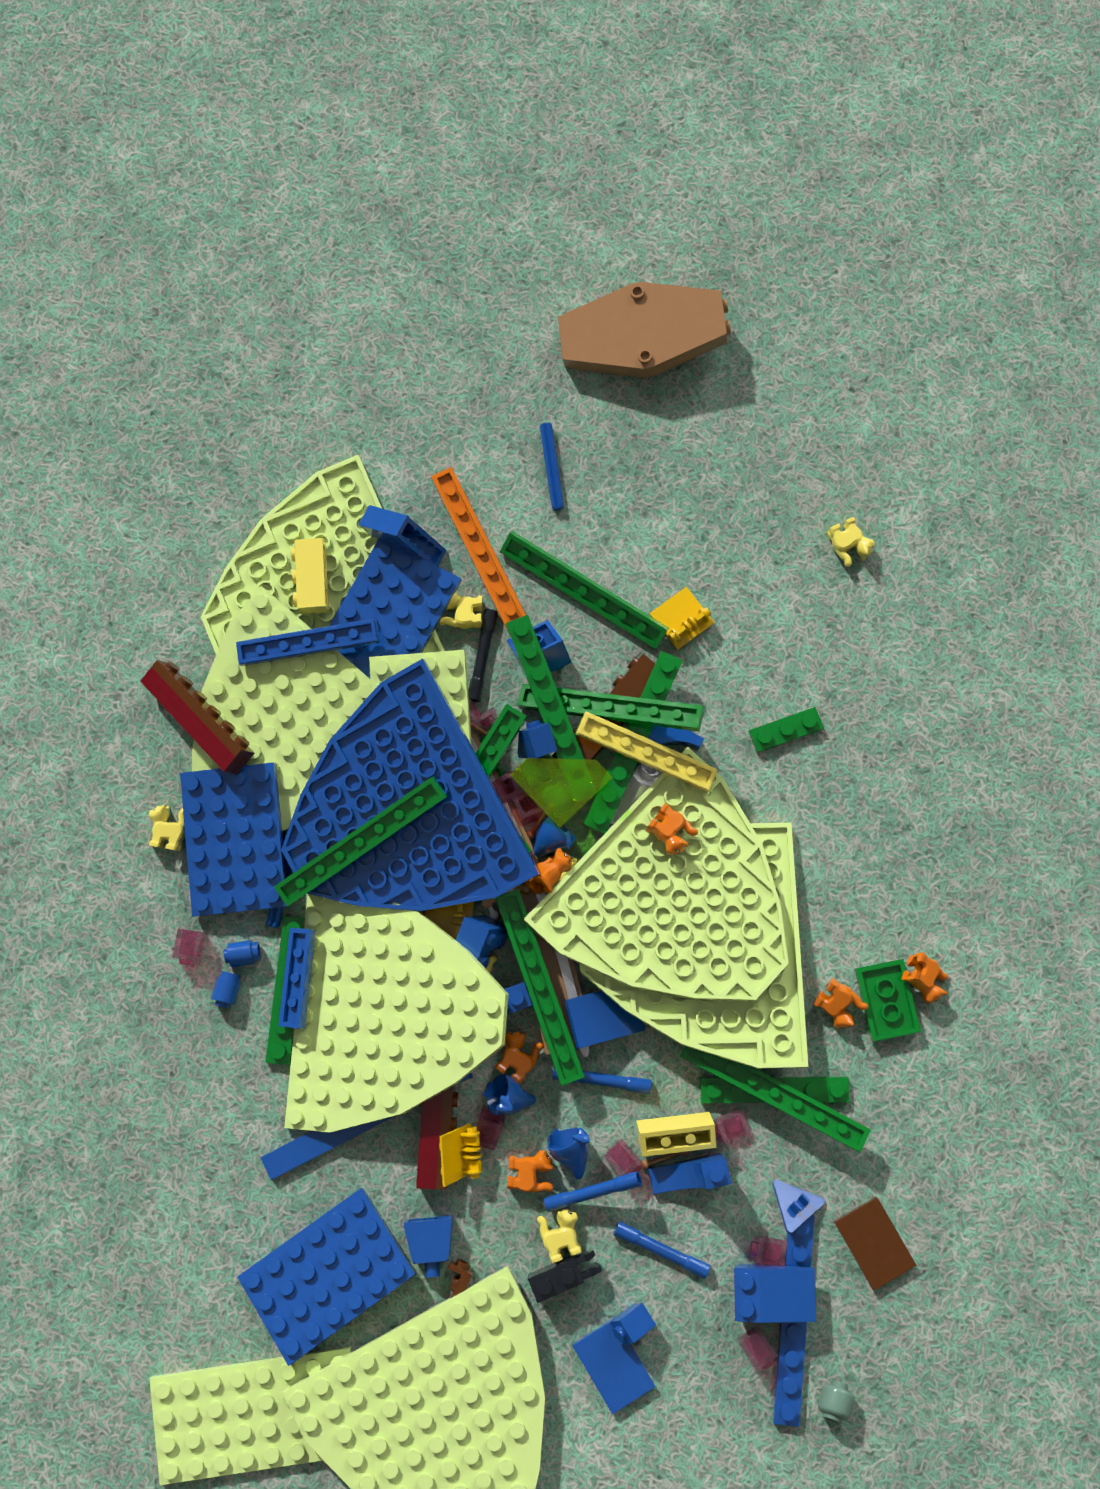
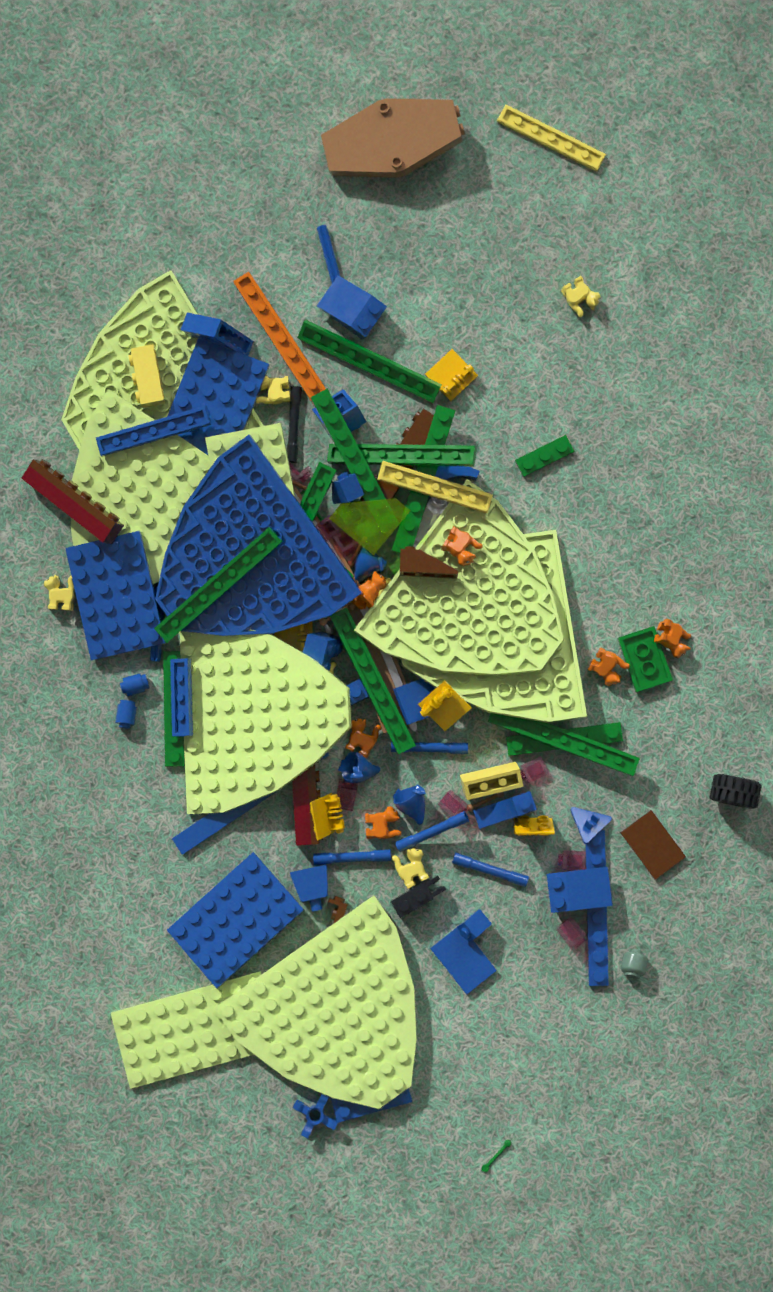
camera: 10 degrees left, 5 degrees up
(189, 946) = (92, 684): clear pink brick -> none
(458, 1208) = (329, 858): none -> blue piece
(570, 522) = (351, 307): none -> blue slope
(617, 846) = (420, 564): none -> reddish brown slope
(626, 1030) = (444, 706): none -> yellow hinge
(724, 1201) = (533, 826): none -> yellow hinge
(833, 352) = (551, 138): none -> light yellow tile
(991, 1189) = (735, 791): none -> black tyre

